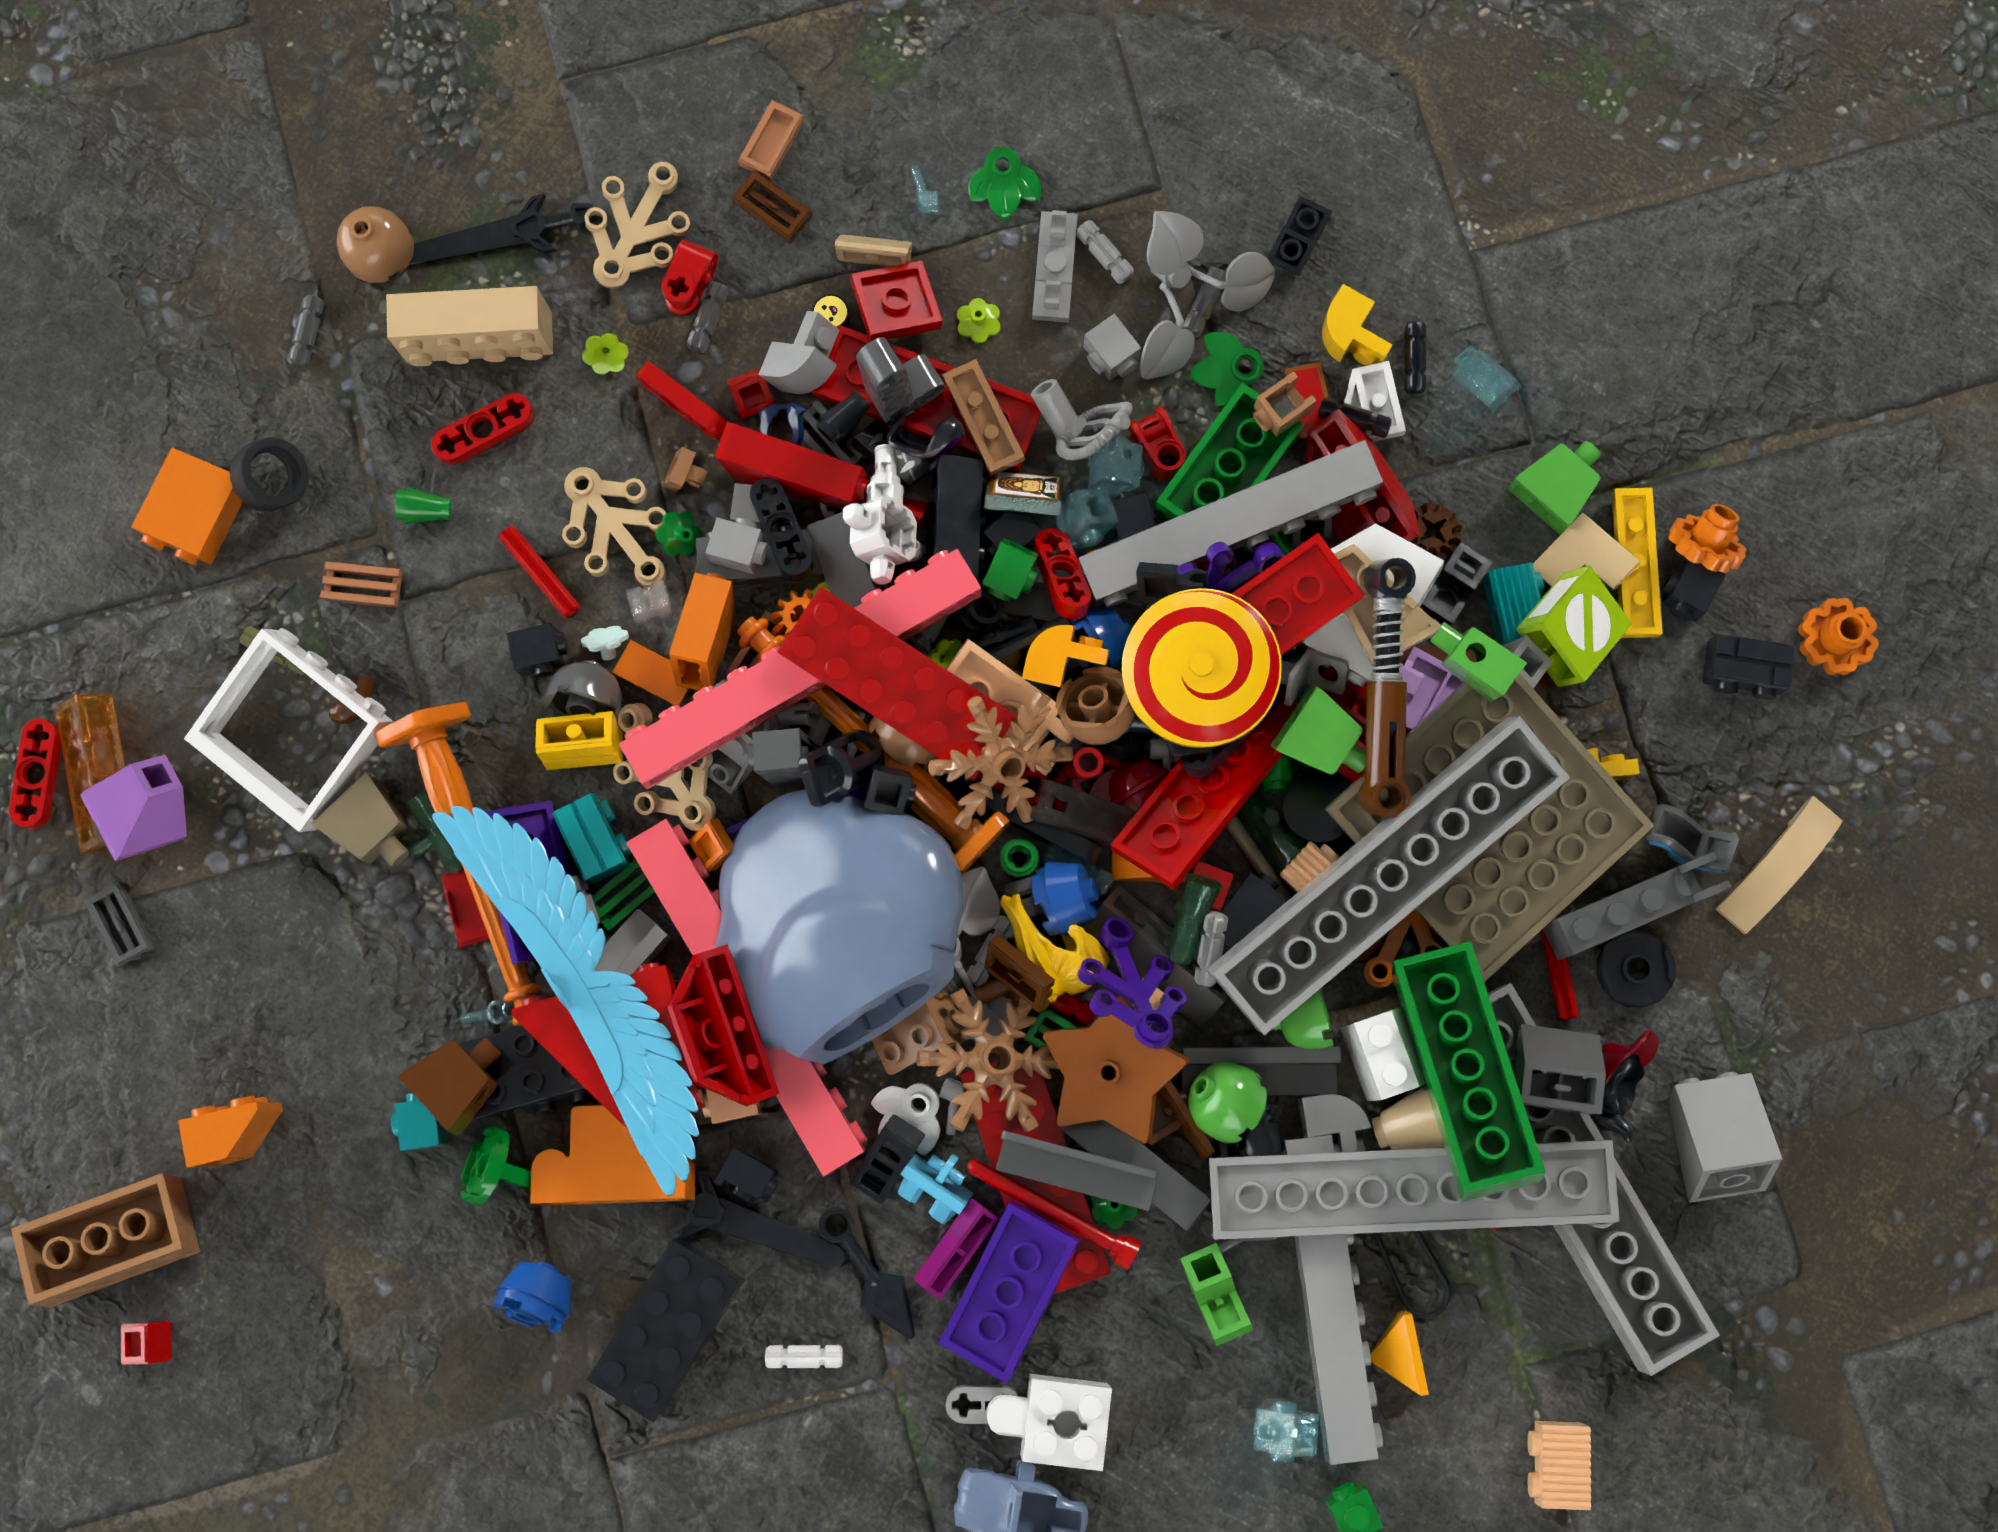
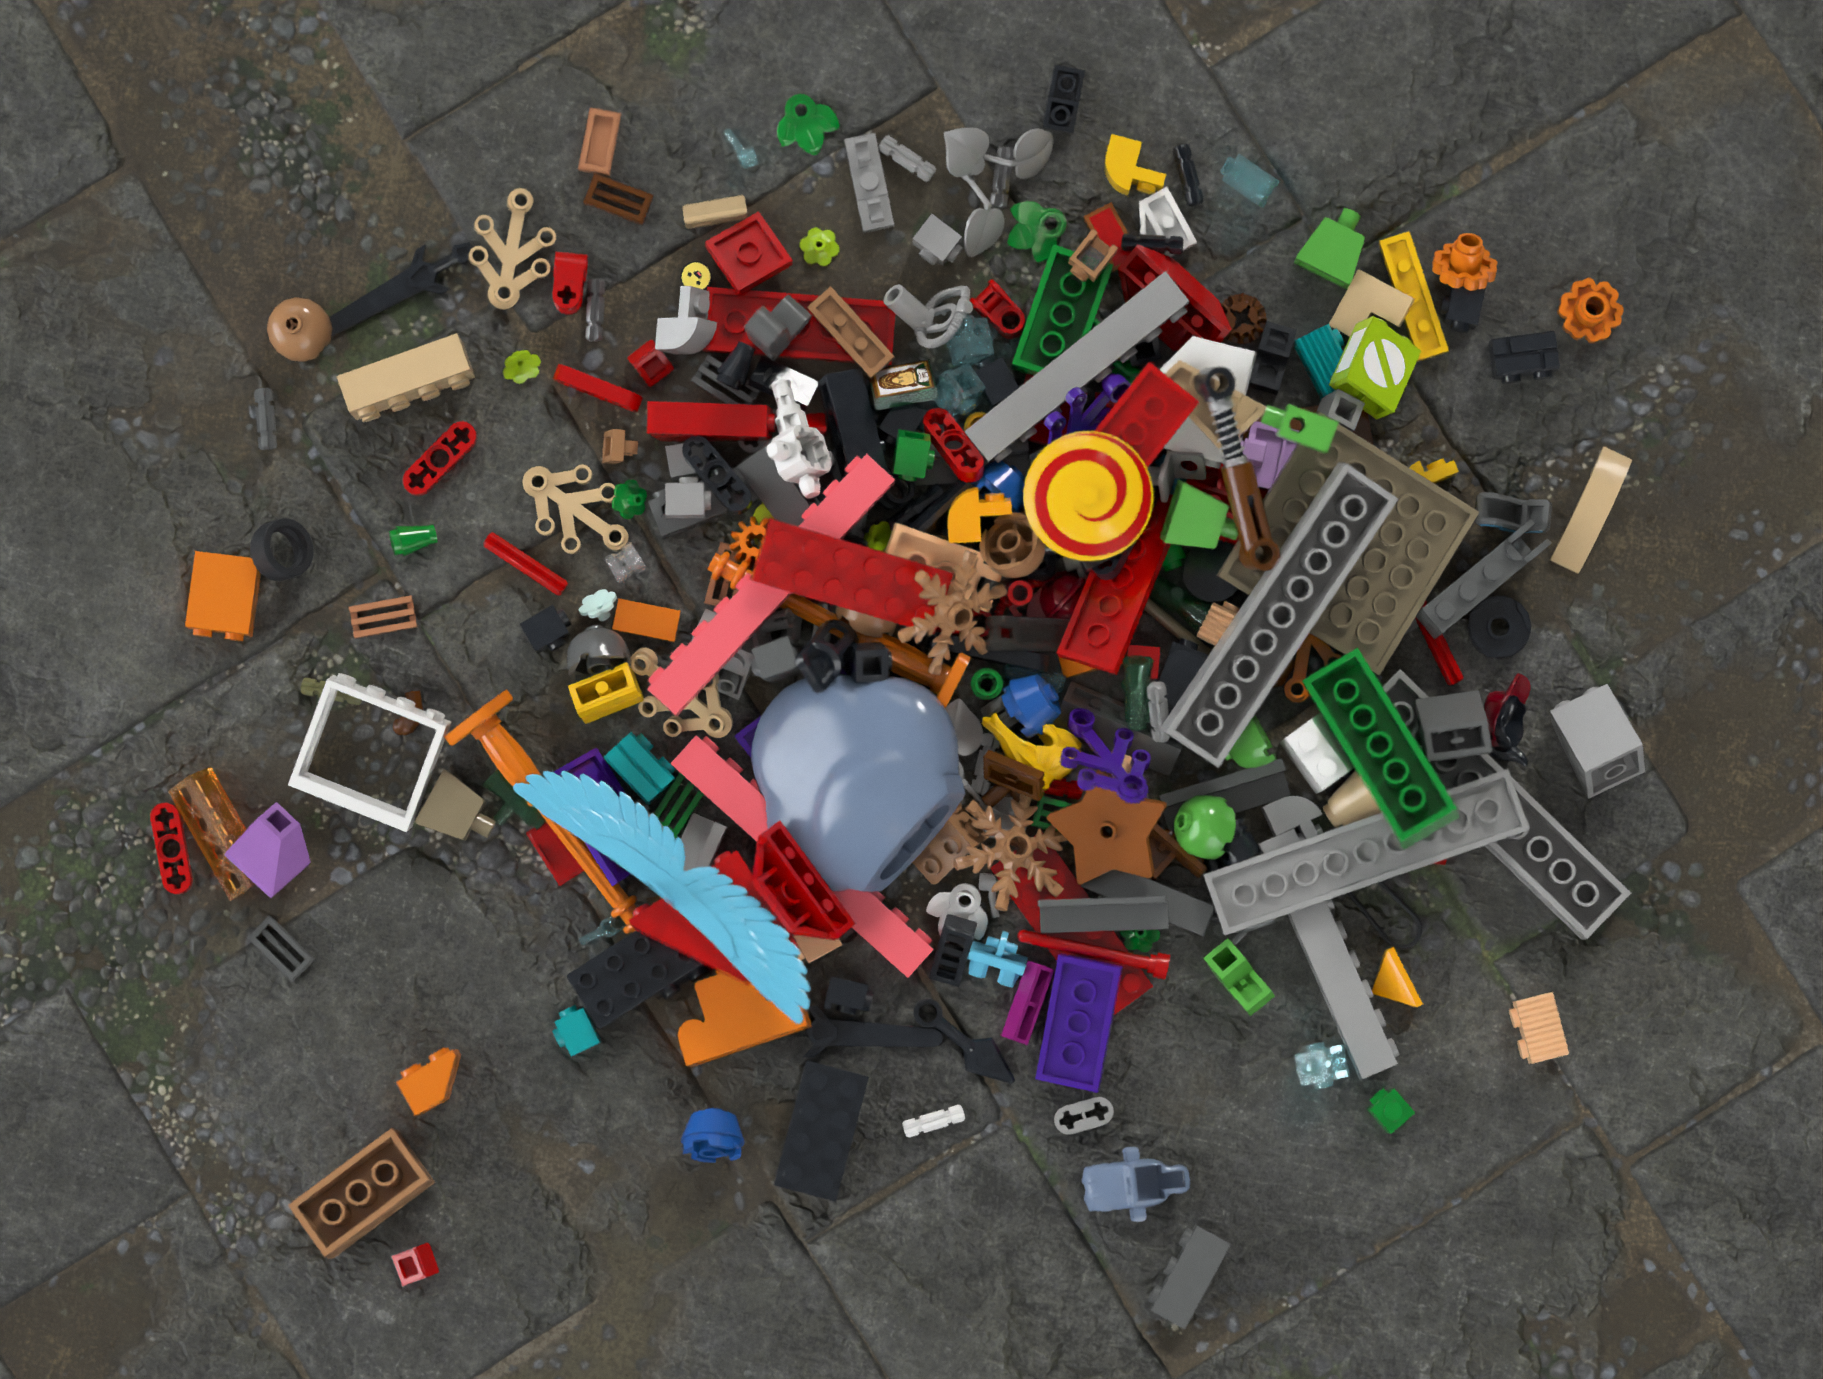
camera: 20 degrees left, 5 degrees up
(453, 1082) = (600, 989): reddish brown torso -> none
(488, 1165) = (643, 1048): green tile -> none
(703, 631) = (679, 576): orange brick -> none
(711, 844) = (738, 745): orange tile -> none
(794, 414) = (695, 374): dark blue piece -> none
(944, 438) = (826, 356): black piece -> none
(1058, 1421) = (1143, 1109): white brick -> none
(1161, 580) = (1038, 434): black plate -> none

